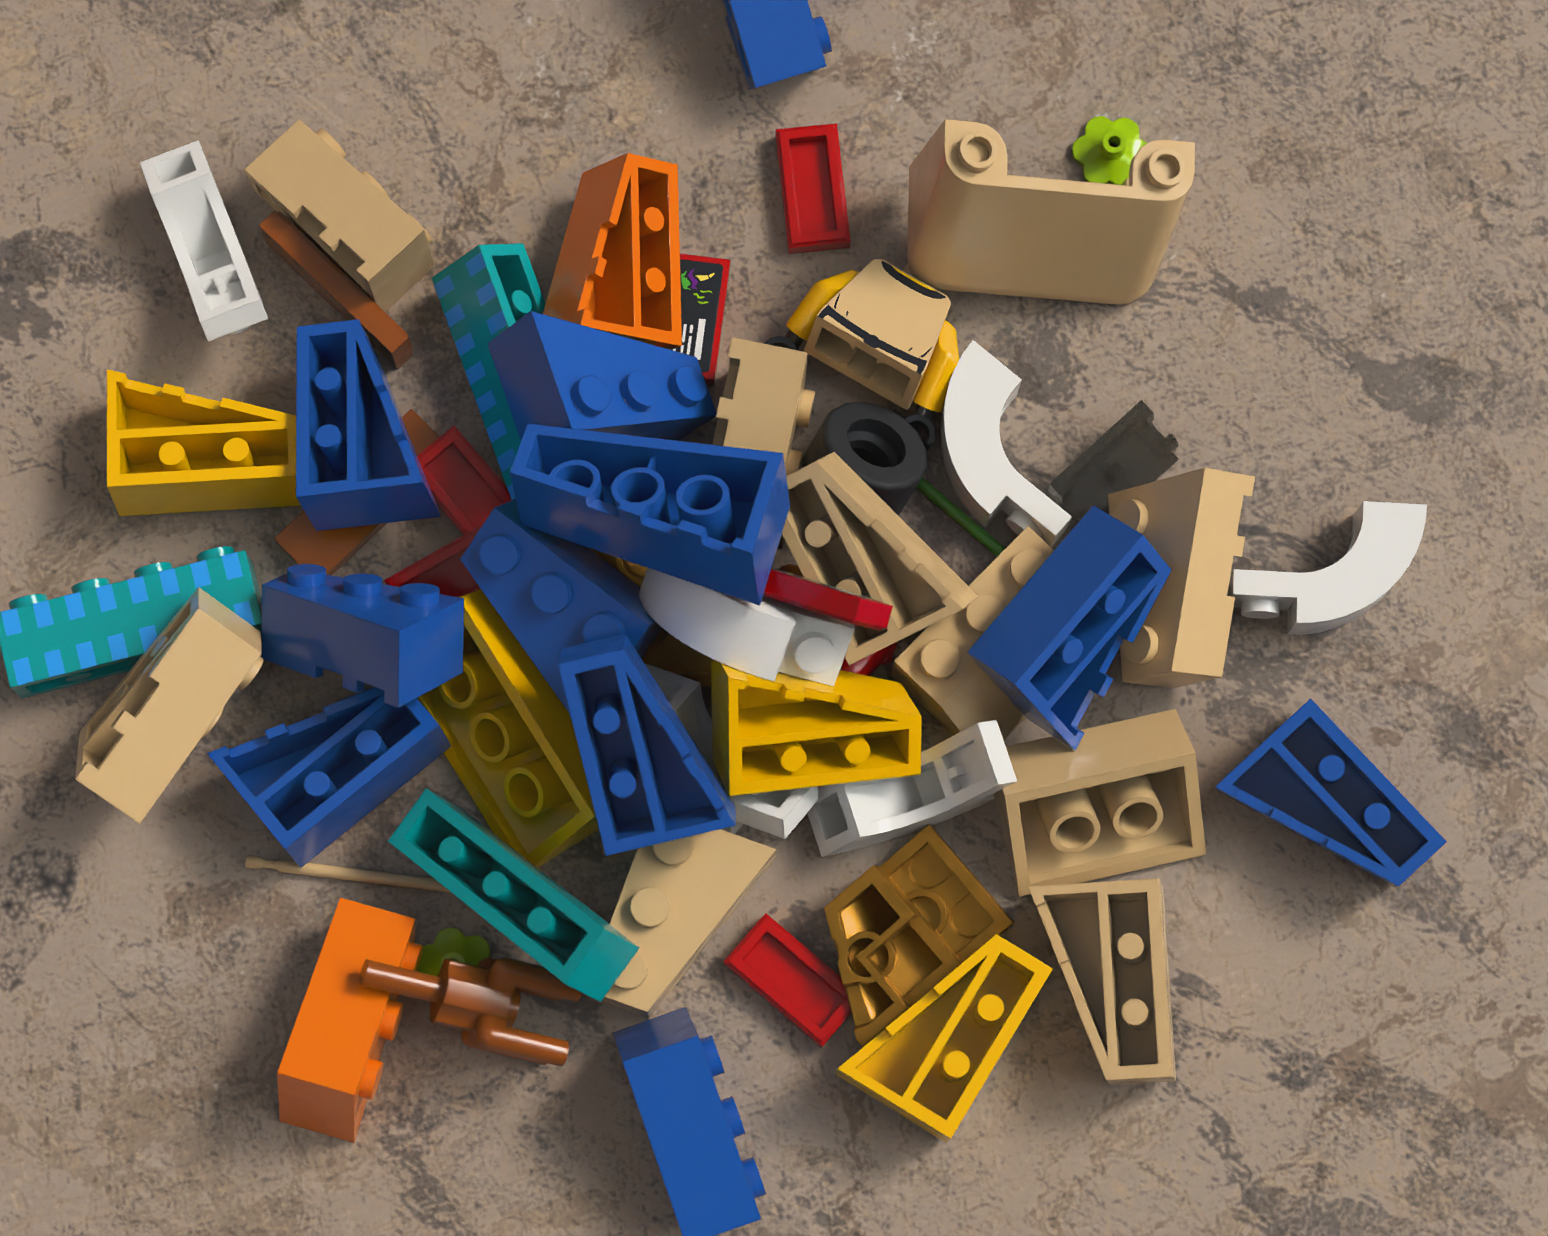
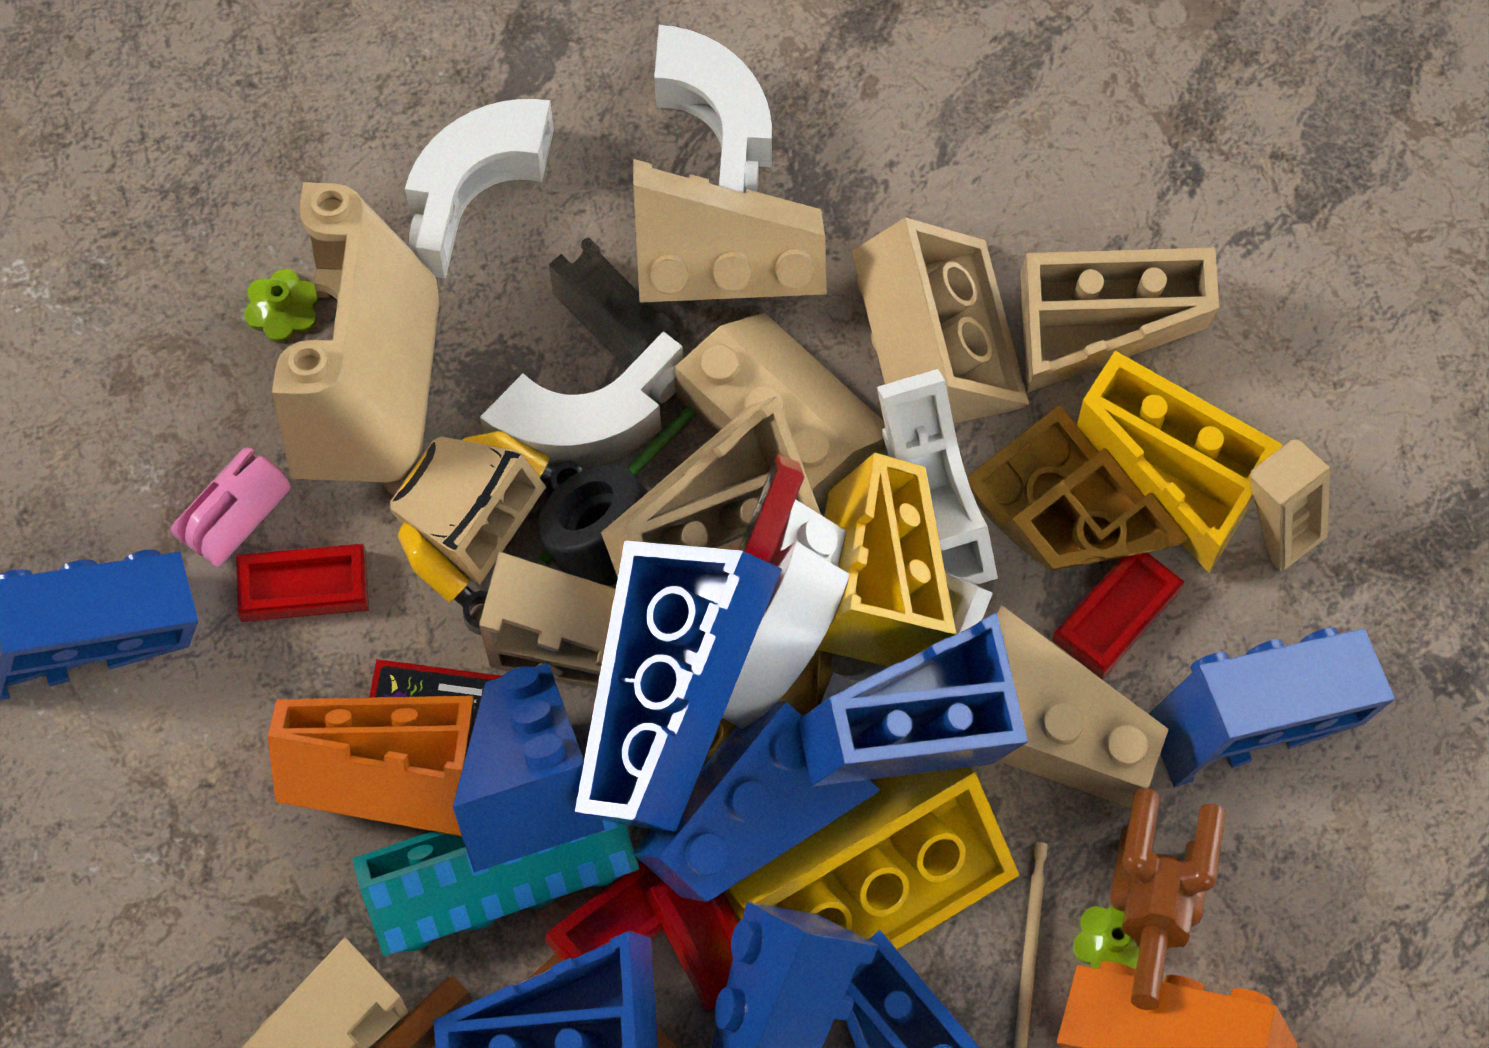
camera: 85 degrees left, 10 degrees down
(513, 895) = (1056, 856): teal brick -> none
(882, 114) = (231, 506): none -> bright pink arm
(894, 1147) = (1291, 502): none -> tan slope
(1069, 622) = (775, 319): blue wedge -> none
(1267, 315) = (464, 159): none -> white arch
(1333, 796) = (932, 117): blue wedge -> none

